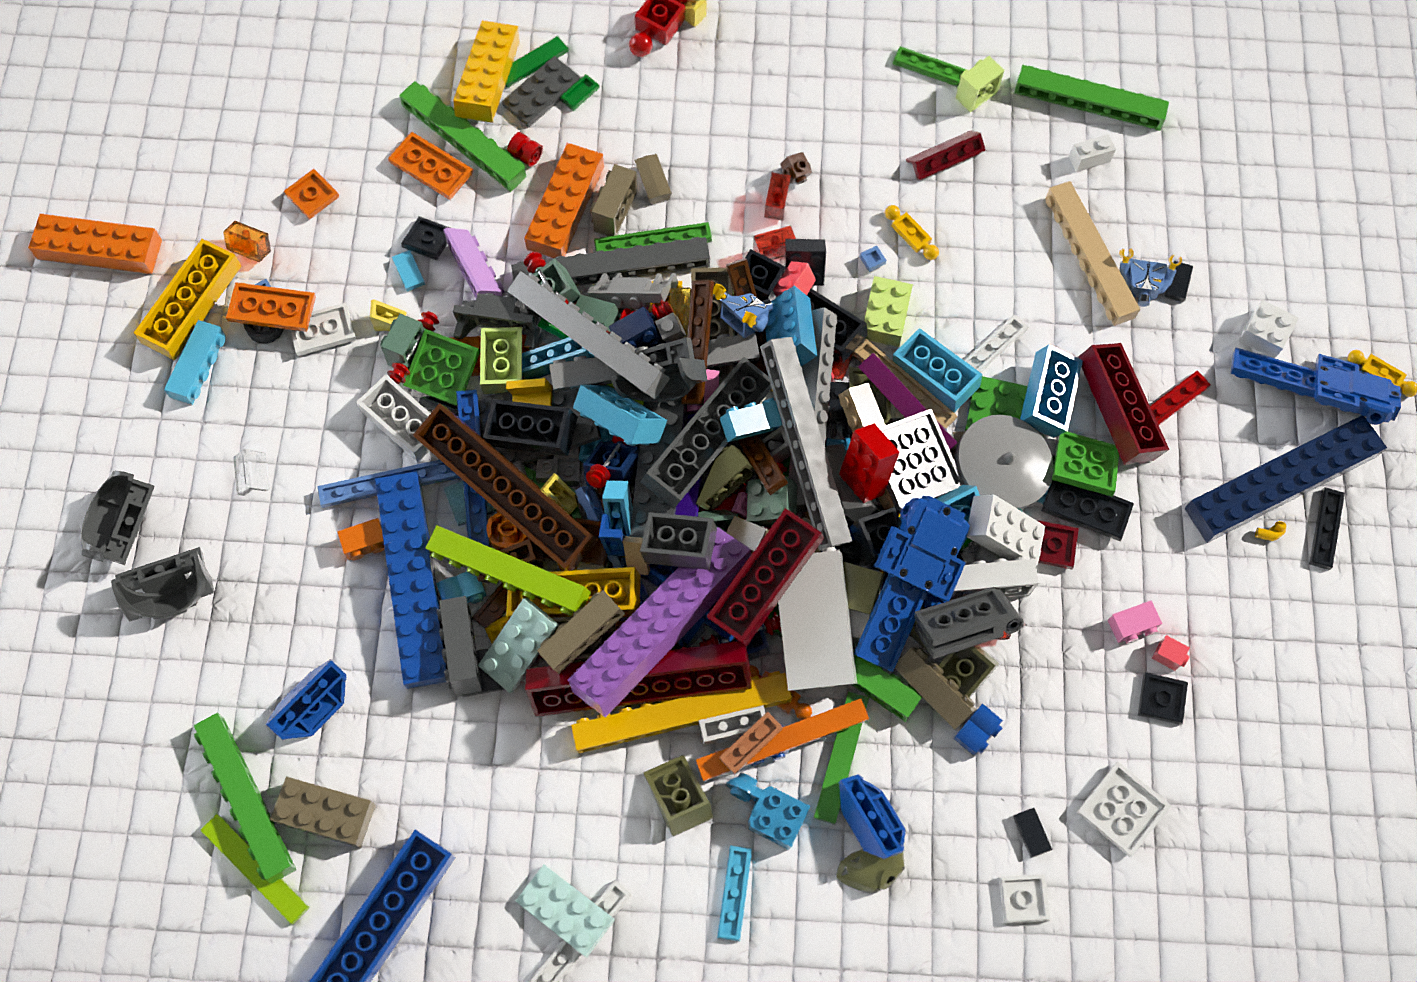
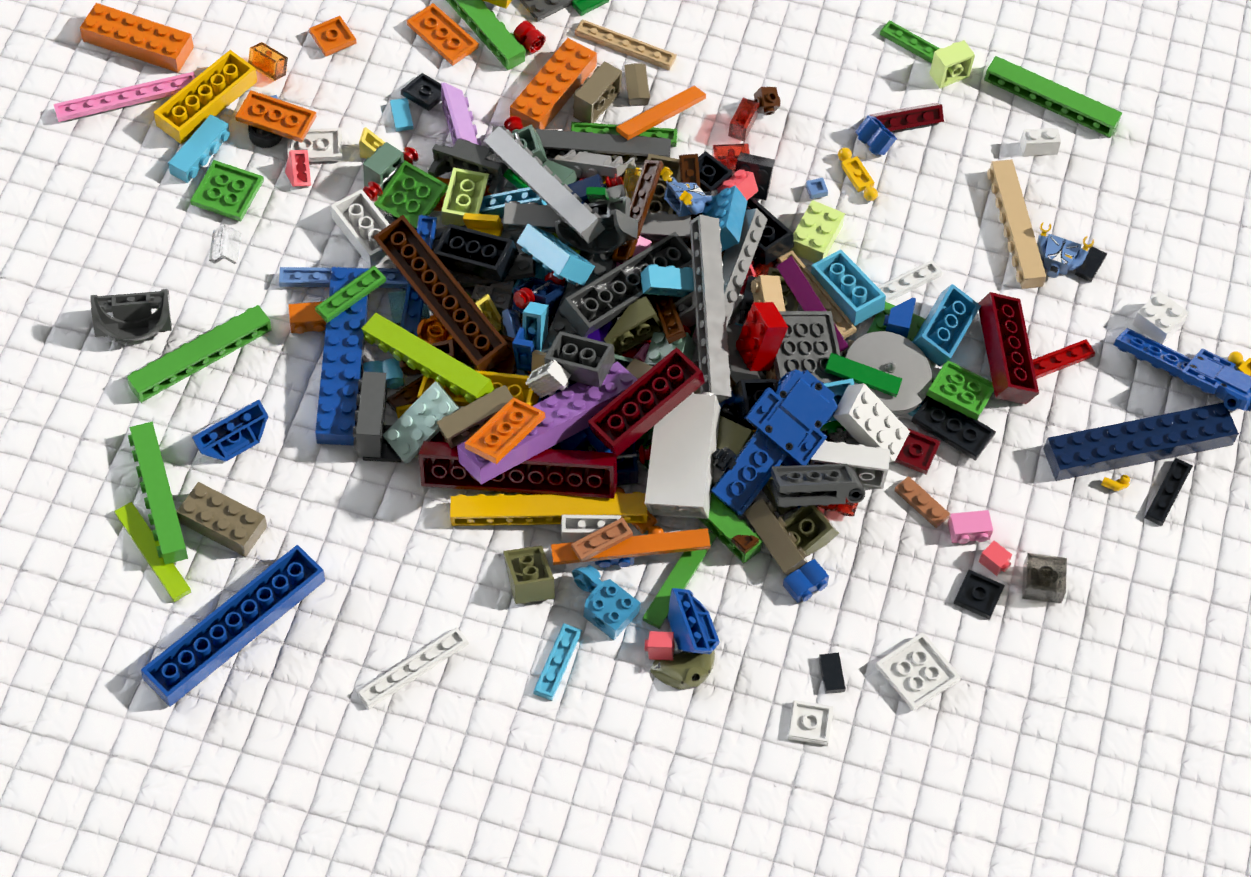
camera: 10 degrees right, 10 degrees down
(95, 318) = (122, 97): none -> bright pink plate
(115, 518) = (103, 252): dark grey piece -> none
(237, 405) = (227, 190): none -> bright green plate
(251, 612) = (199, 353): none -> bright green brick
(310, 362) = (298, 168): none -> coral slope
(403, 508) = (350, 294): none -> bright green tile
(565, 910) = (408, 640): light aqua plate -> none
(617, 653) = (504, 430): none -> orange plate
(629, 134) = (625, 44): none -> tan tile
(649, 571) = (548, 379): none -> white brick
(650, 341) = (596, 194): none -> green tile
(687, 208) = (660, 112): none -> orange tile
(842, 849) = (660, 645): none -> coral brick
(862, 617) = (724, 458): none -> black gear
(904, 703) = (745, 542): none -> reddish brown tile
(920, 184) = (875, 135): none -> blue brick
(983, 475) = (864, 374): none -> green tile
(1002, 395) = (900, 318): none -> blue slope
(1075, 603) = (922, 502): none -> nougat plate
(1229, 666) = (1044, 578): none -> clear smoke brick

